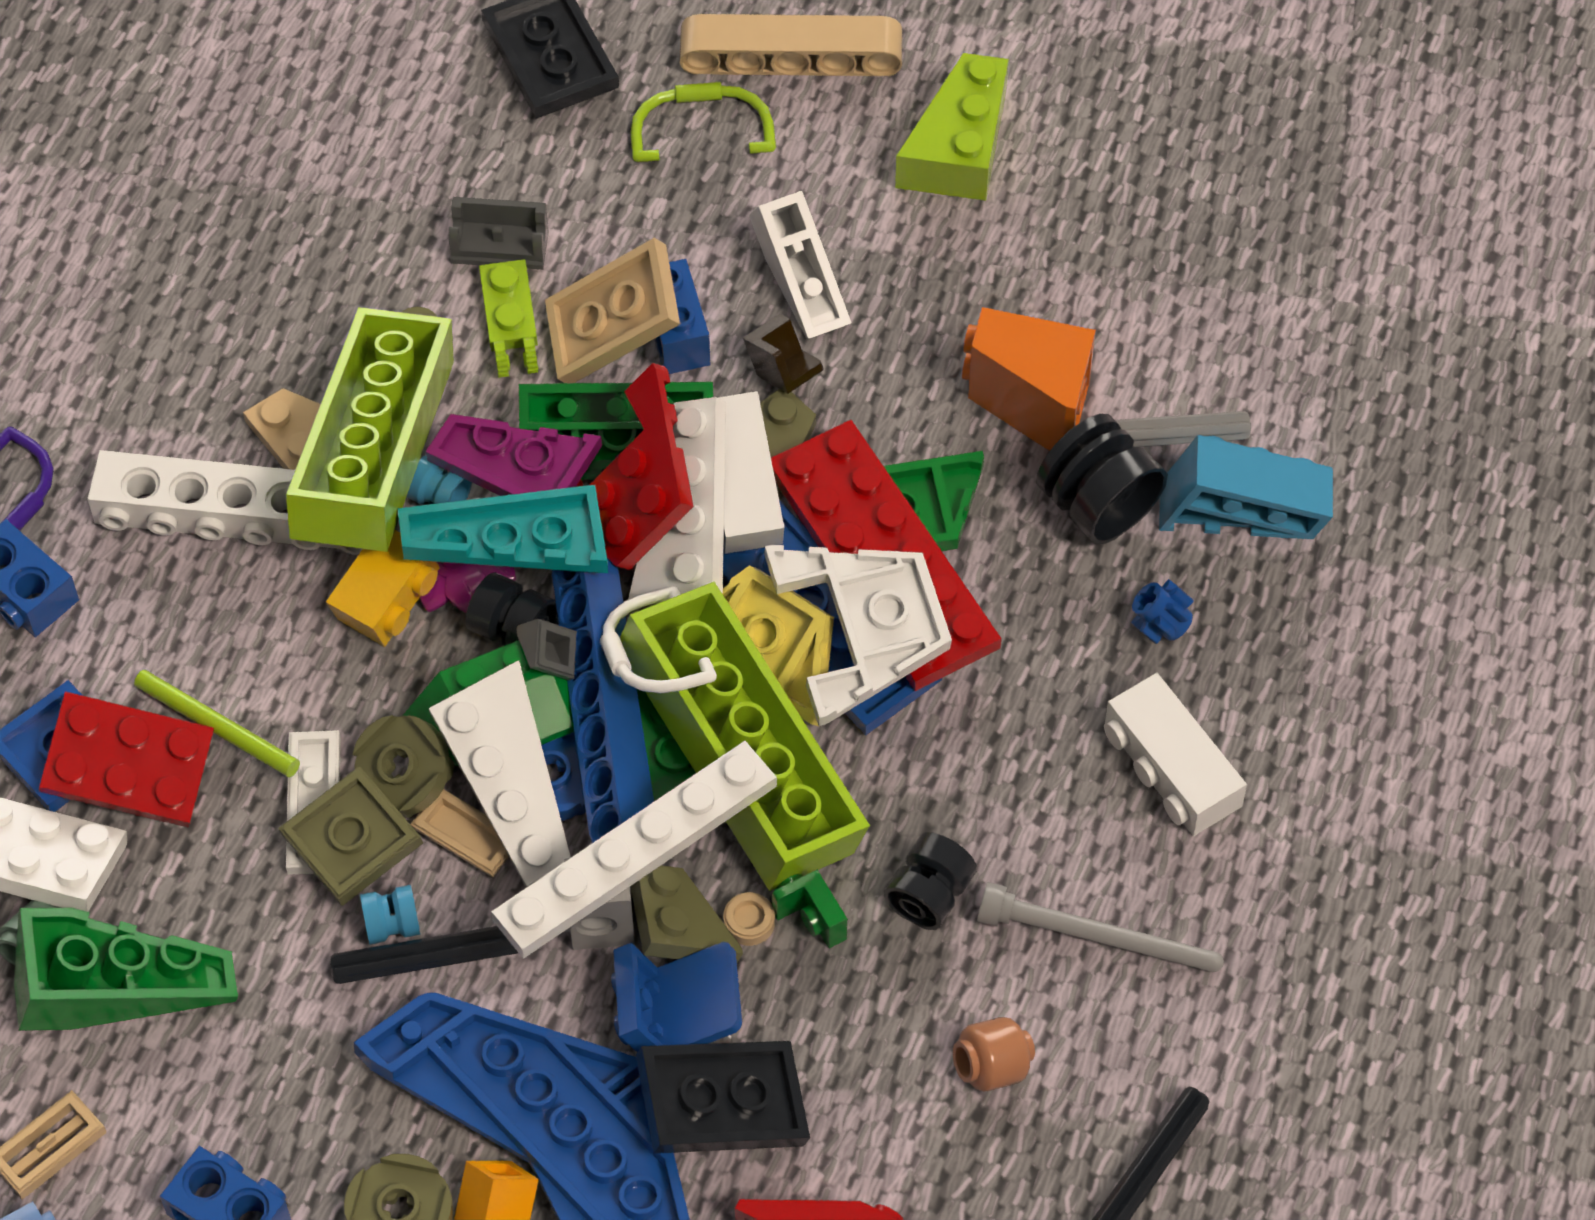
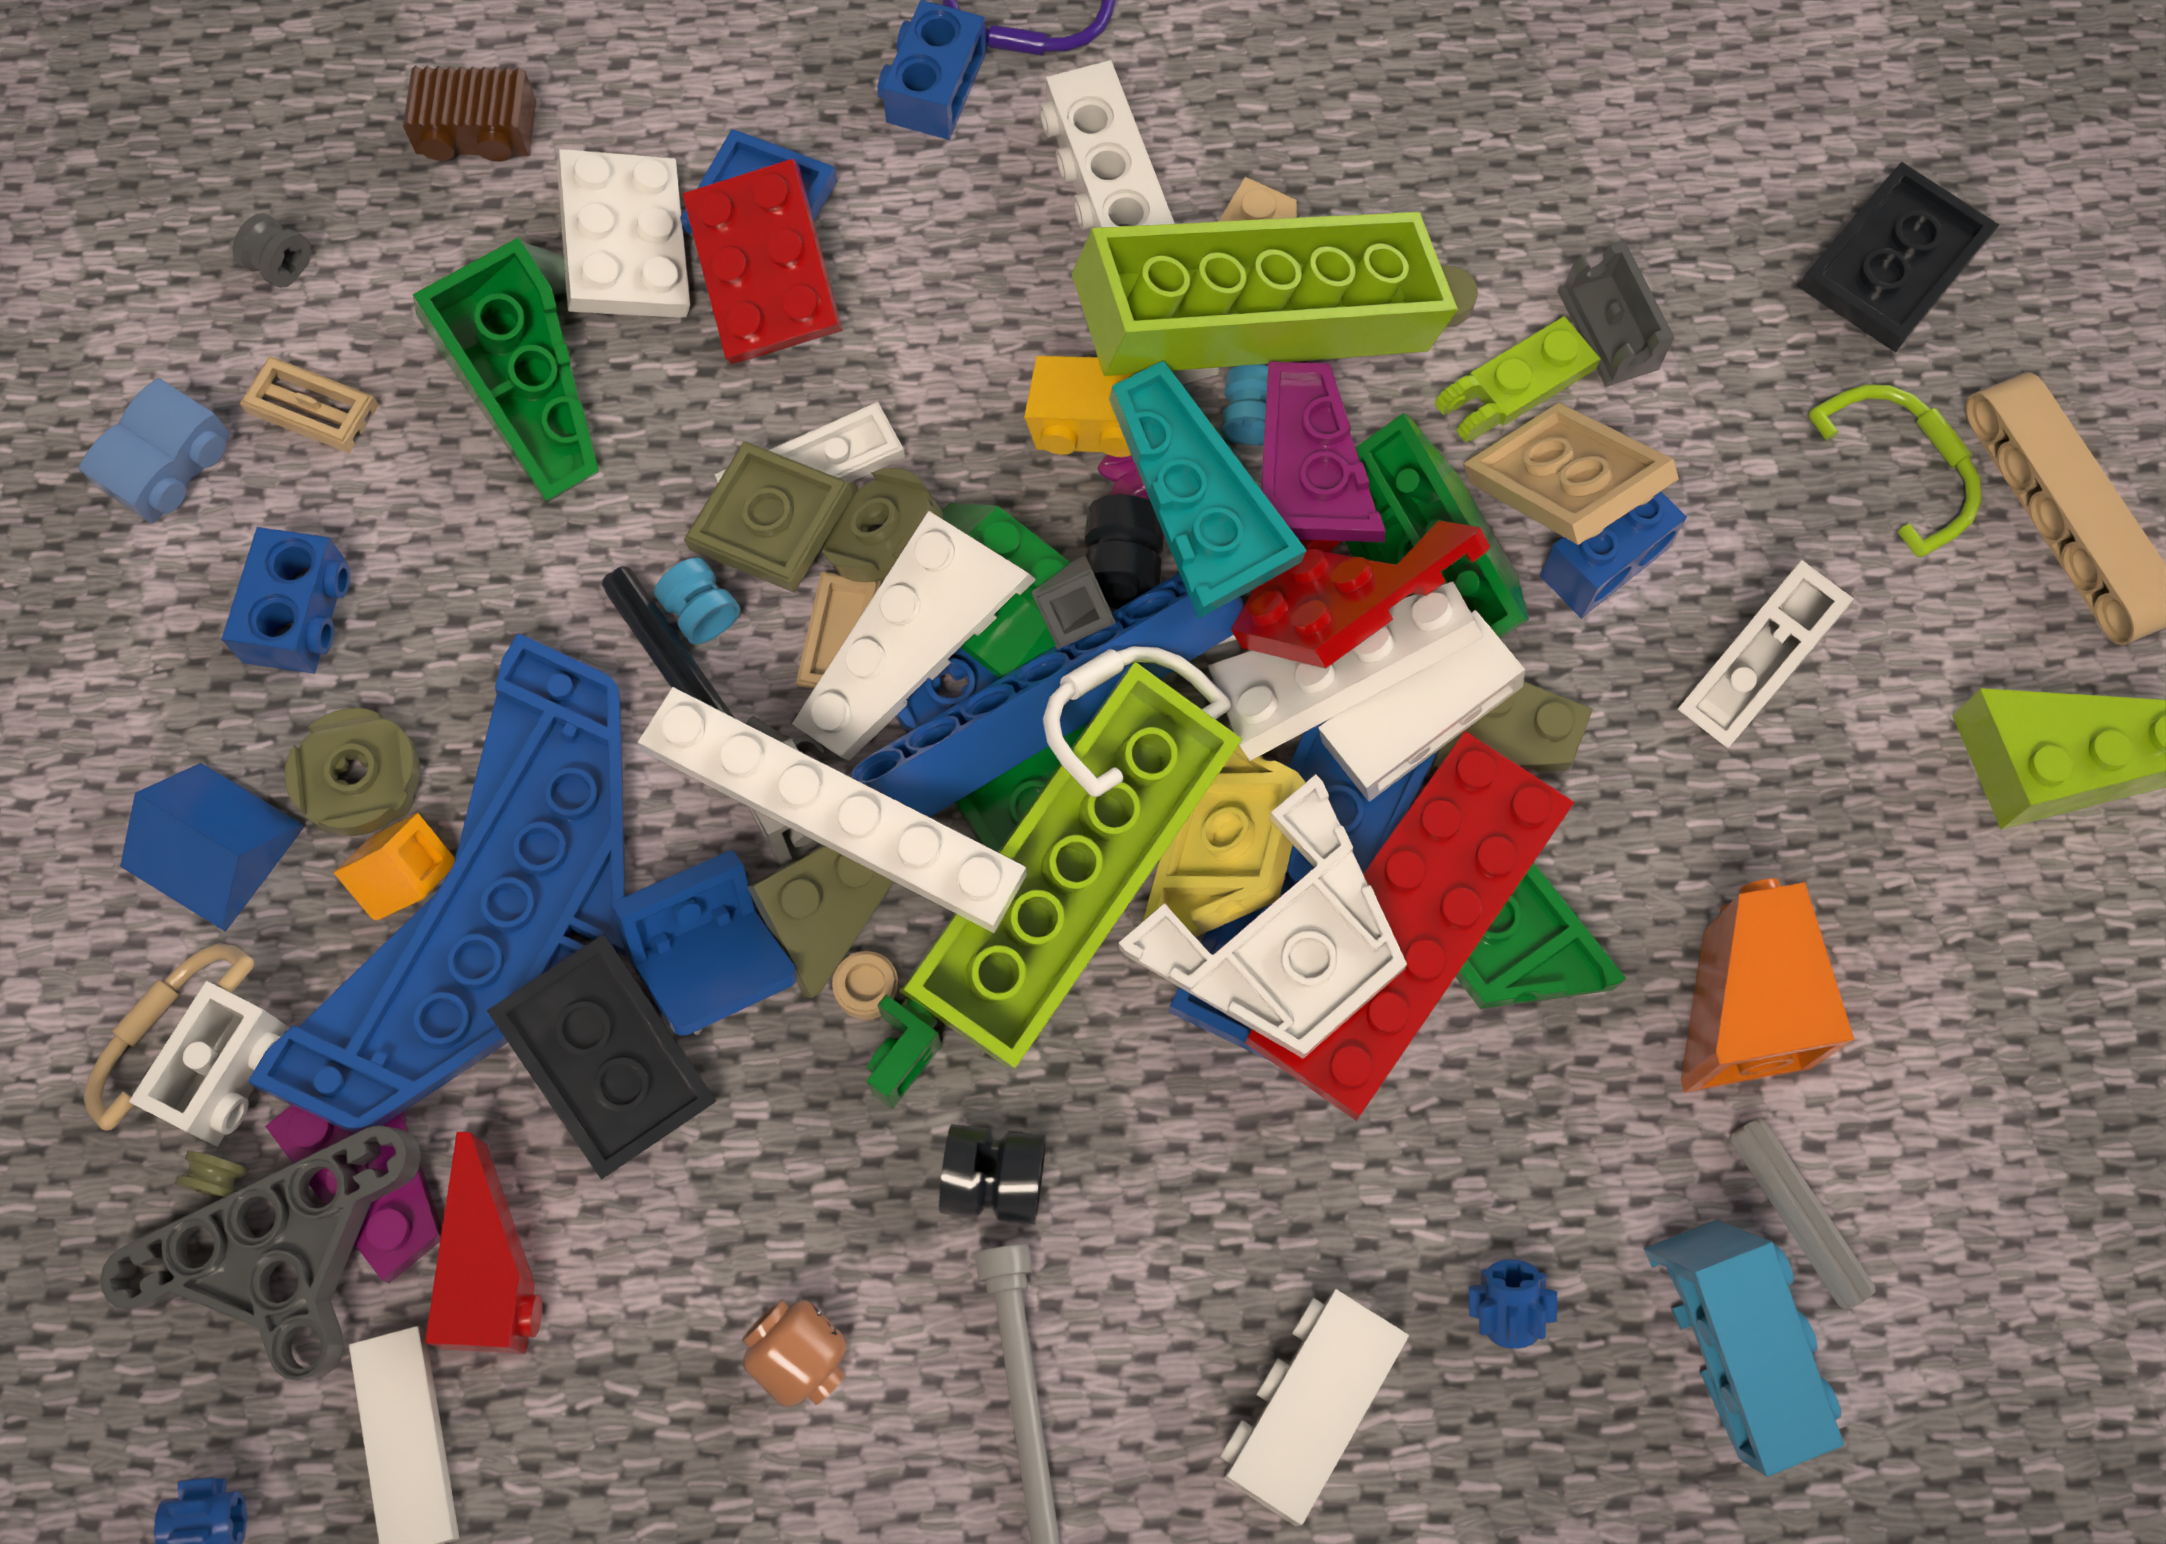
camera: 65 degrees right, 10 degrees up
(222, 725) = (854, 330): lime bar -> none
(779, 356) = (1629, 686): dark brown panel -> none
(1101, 478) = (1657, 1142): black wheel -> none

